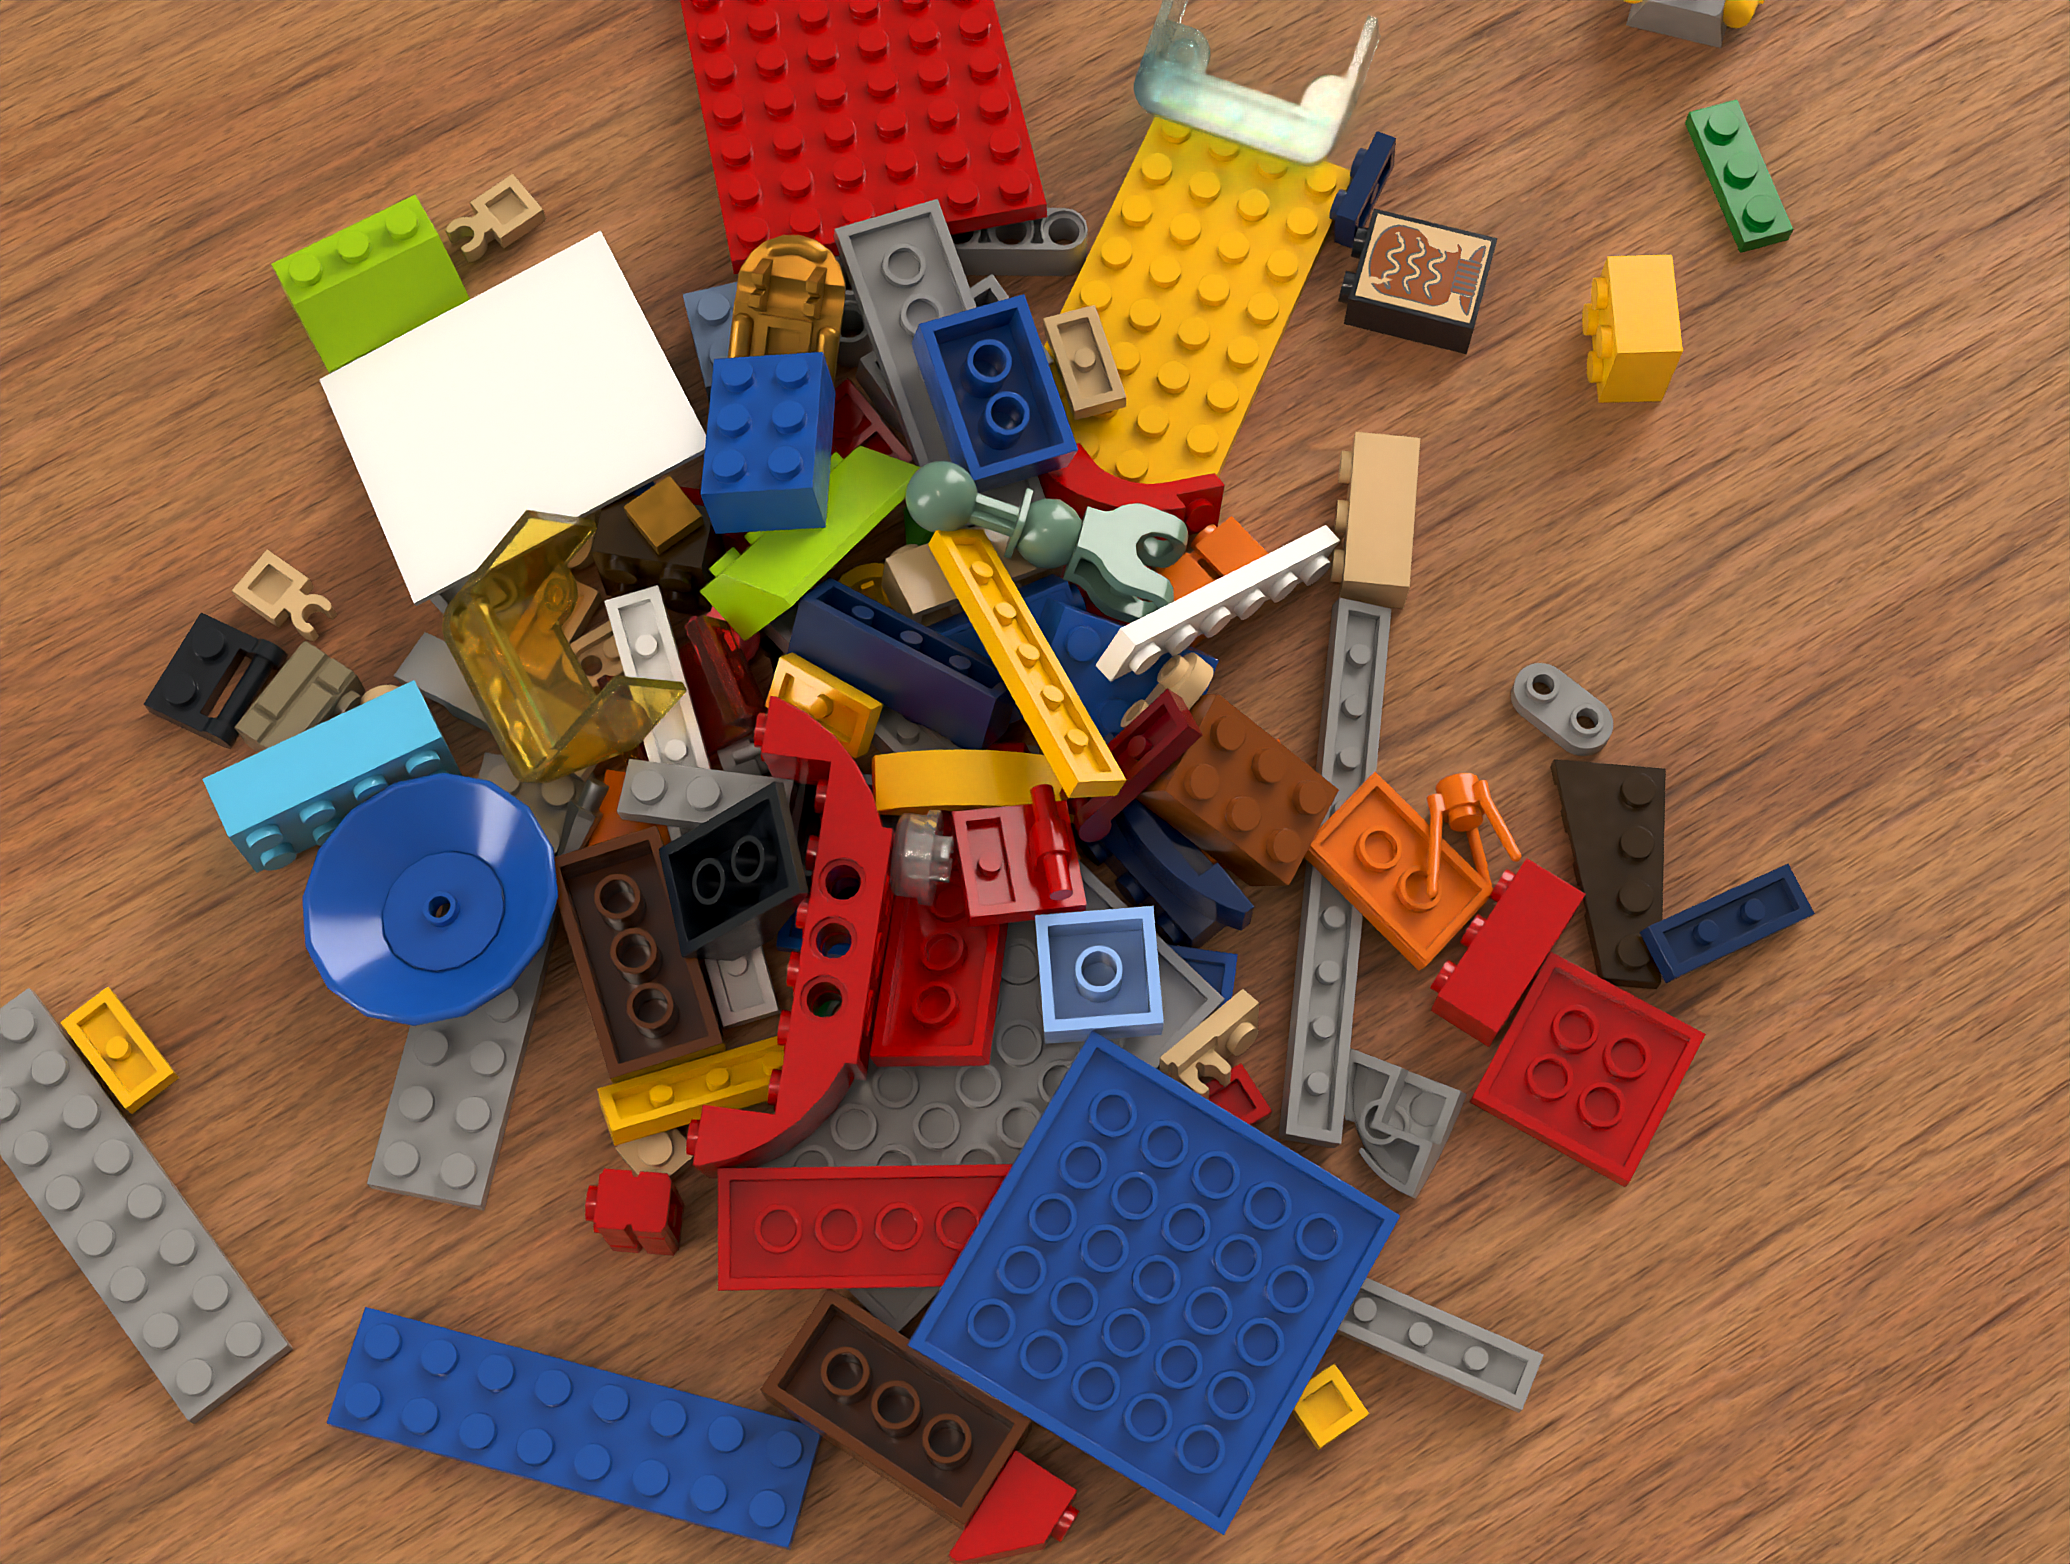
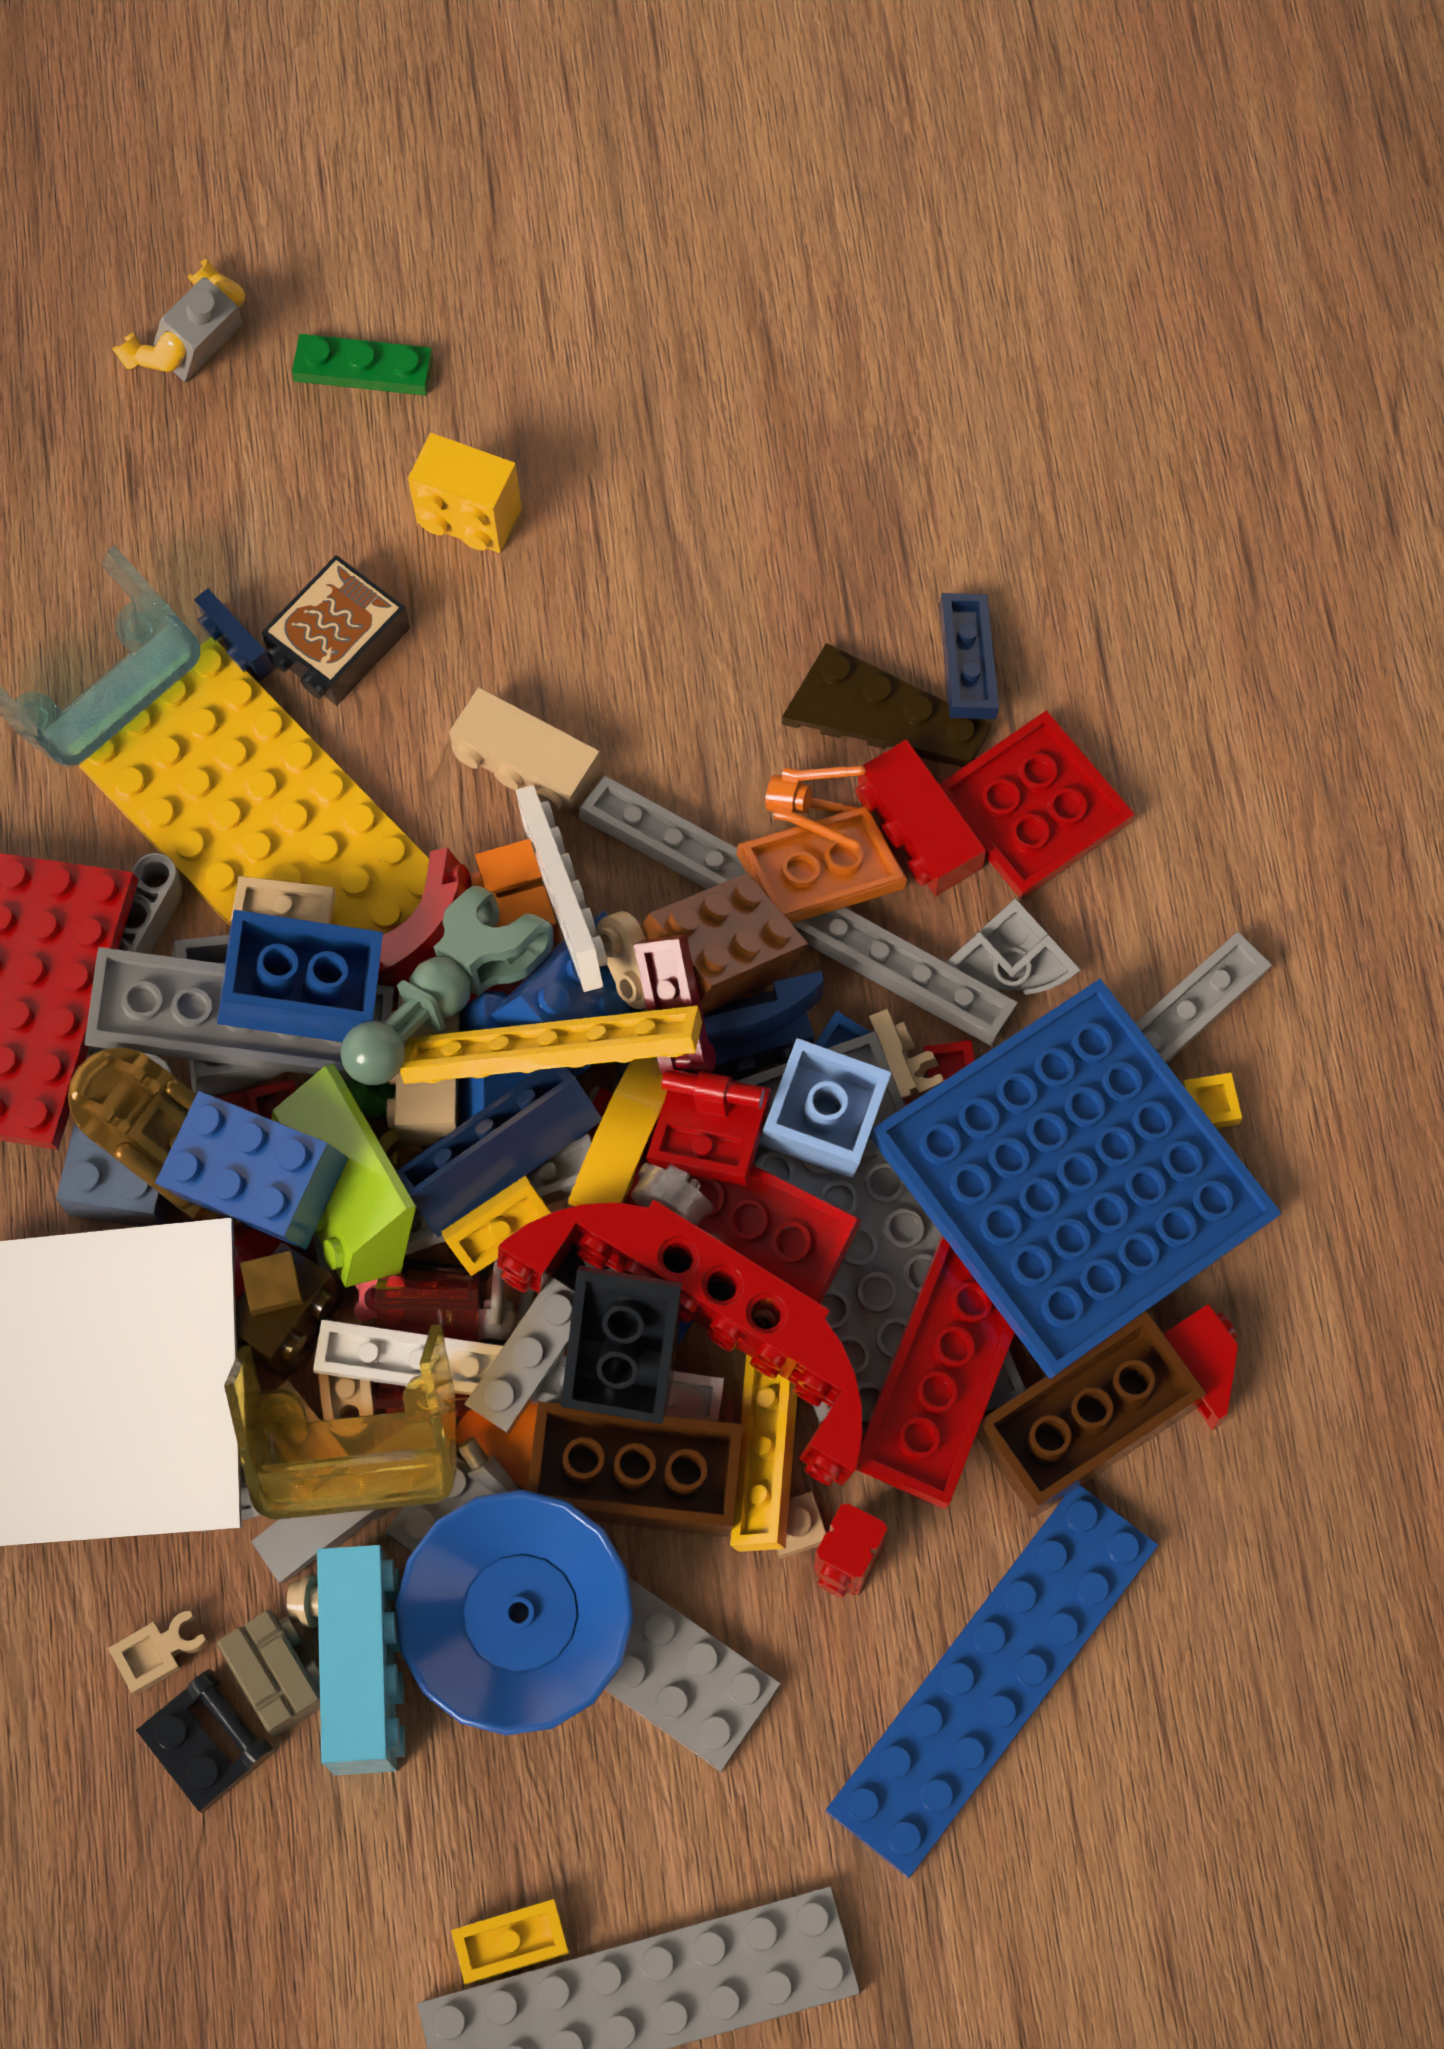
camera: 65 degrees left, 0 degrees up
(1557, 711) = (744, 694): light grey plate -> none

